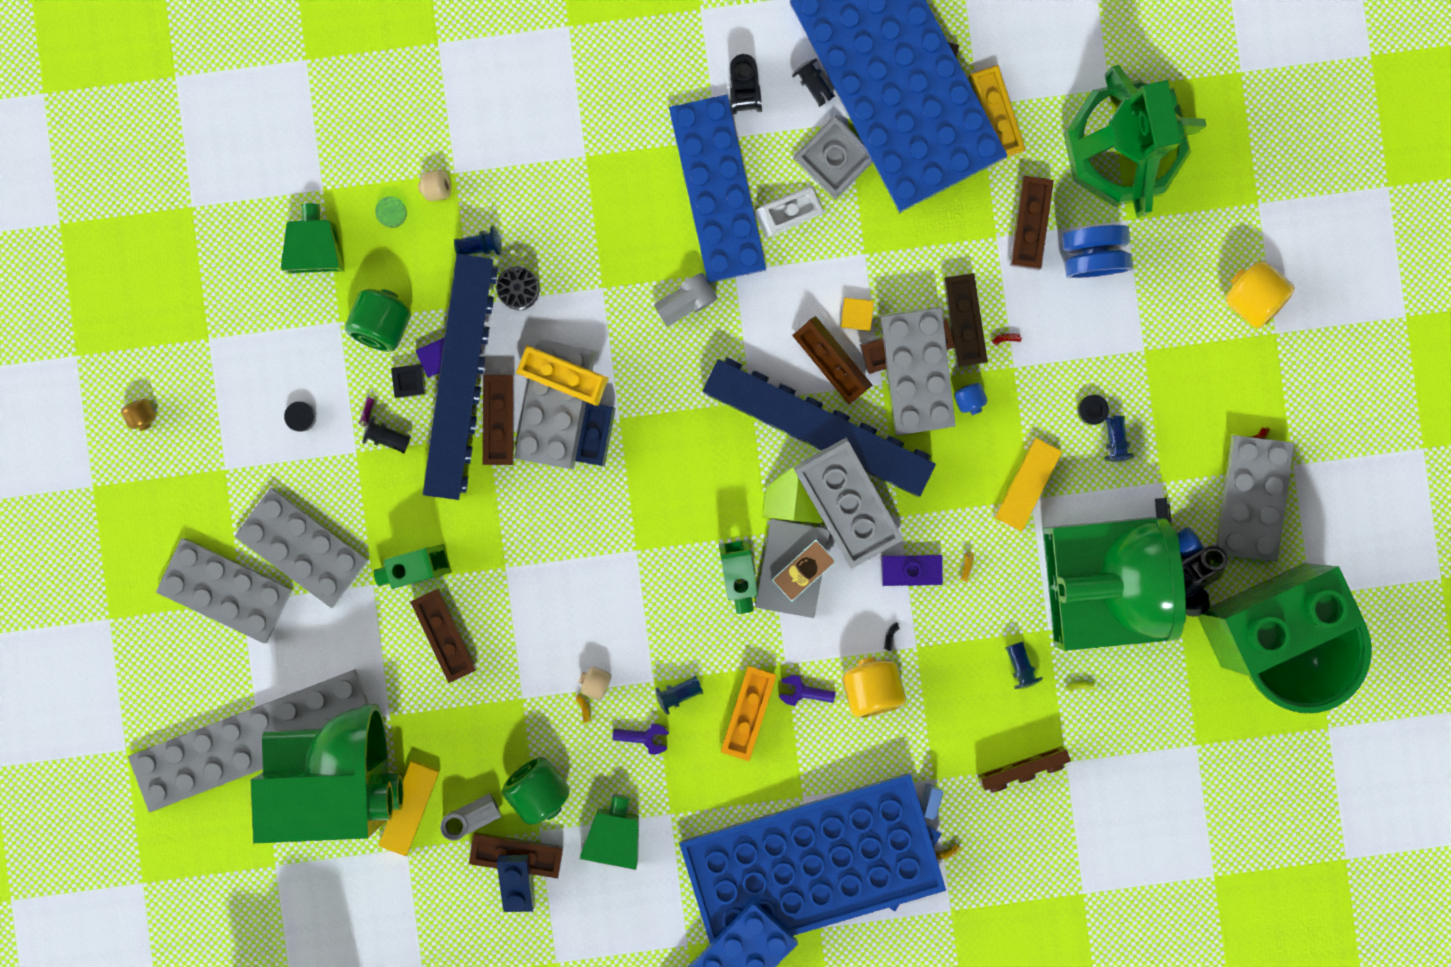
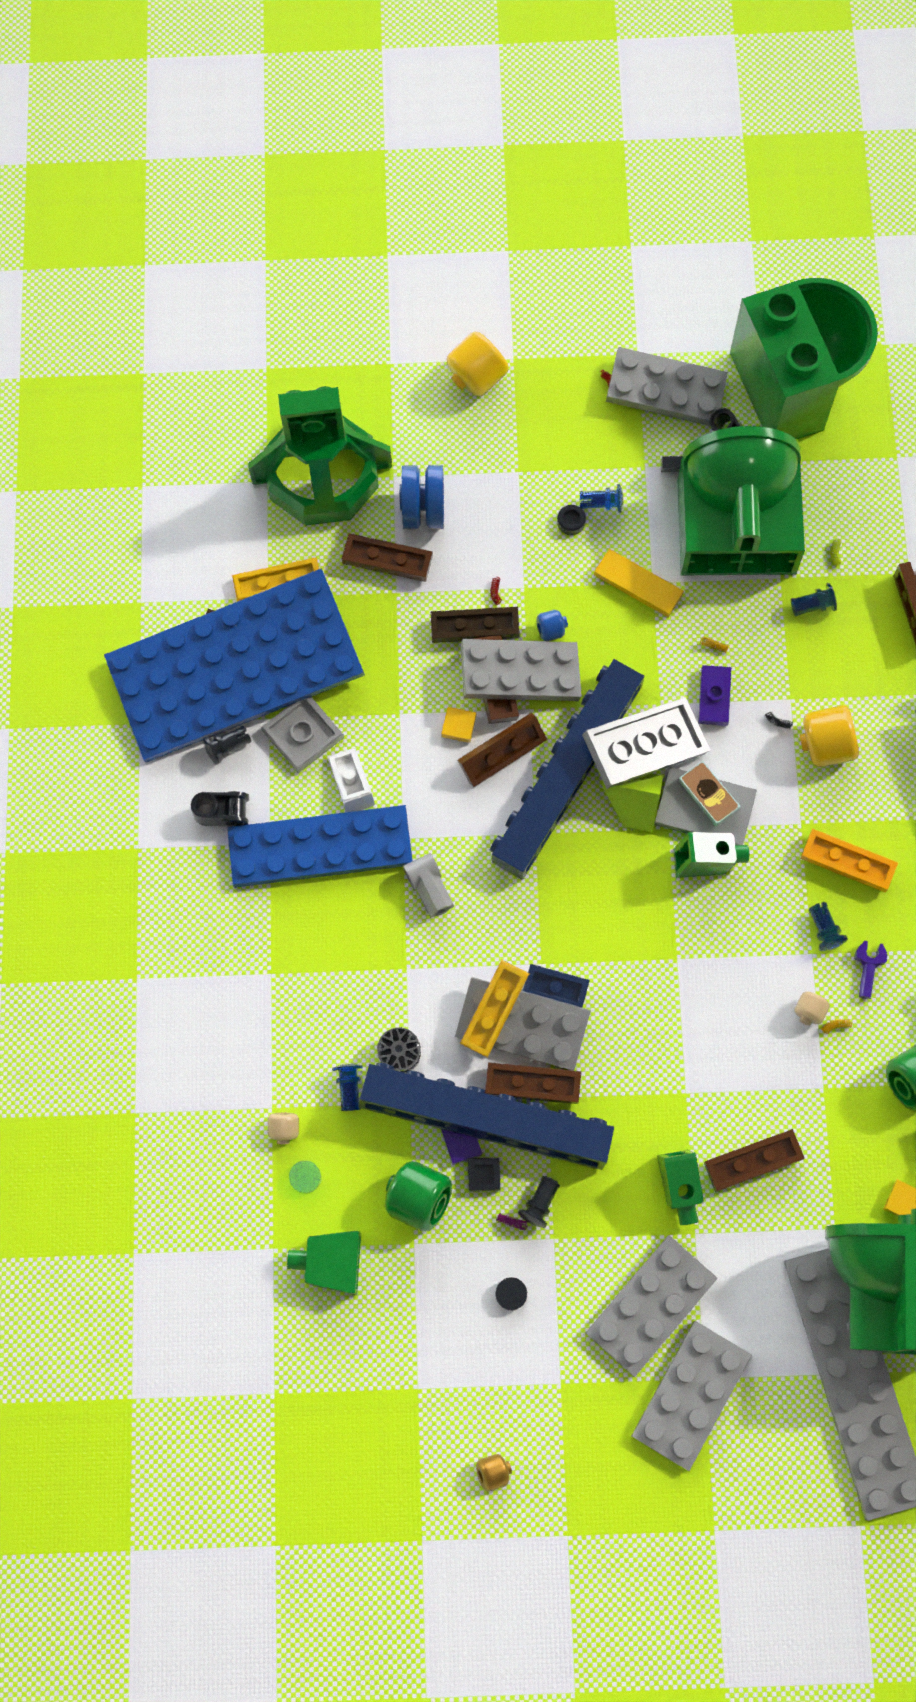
camera: 80 degrees left, 15 degrees down
(805, 692) = (829, 808): dark purple bar -> none

